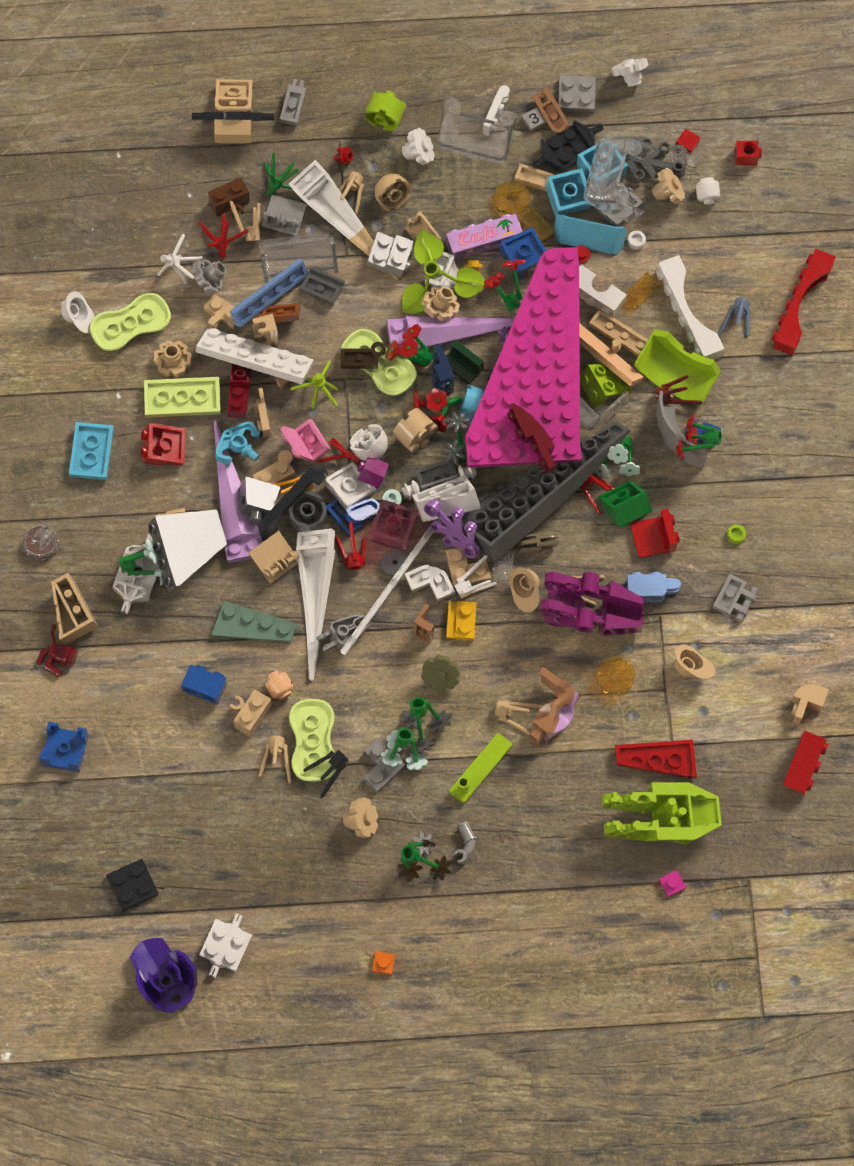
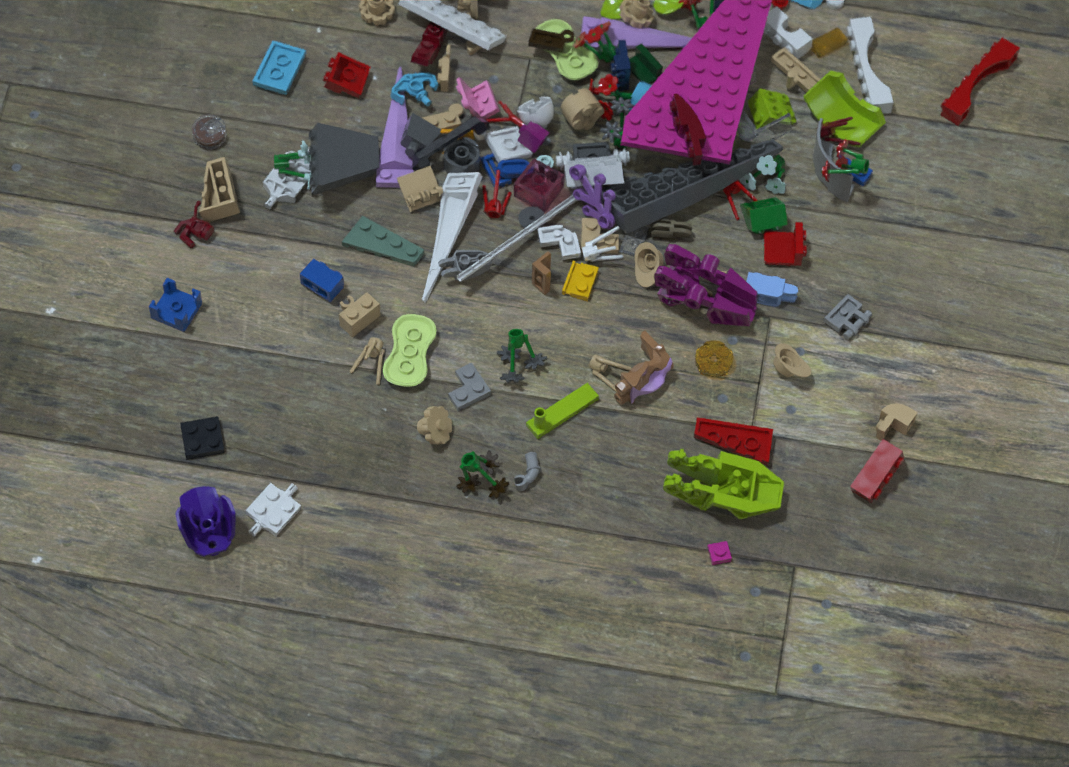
camera: 15 degrees right, 10 degrees down
(182, 397) = (375, 41): yellowish green plate -> none
(279, 685) = (392, 297): light nougat head -> none
(319, 382) = (504, 52): lime plant -> none
(337, 762) = (425, 370): black plant -> none
(383, 963) = (419, 559): orange plate -> none
(397, 741) = (490, 369): plant -> none
(440, 673) = (546, 317): olive plant -> none
(608, 357) = (780, 86): light nougat tile -> none
(736, 534) = (863, 263): lime tile -> none
(740, 309) = (917, 75): sand blue plant -> none

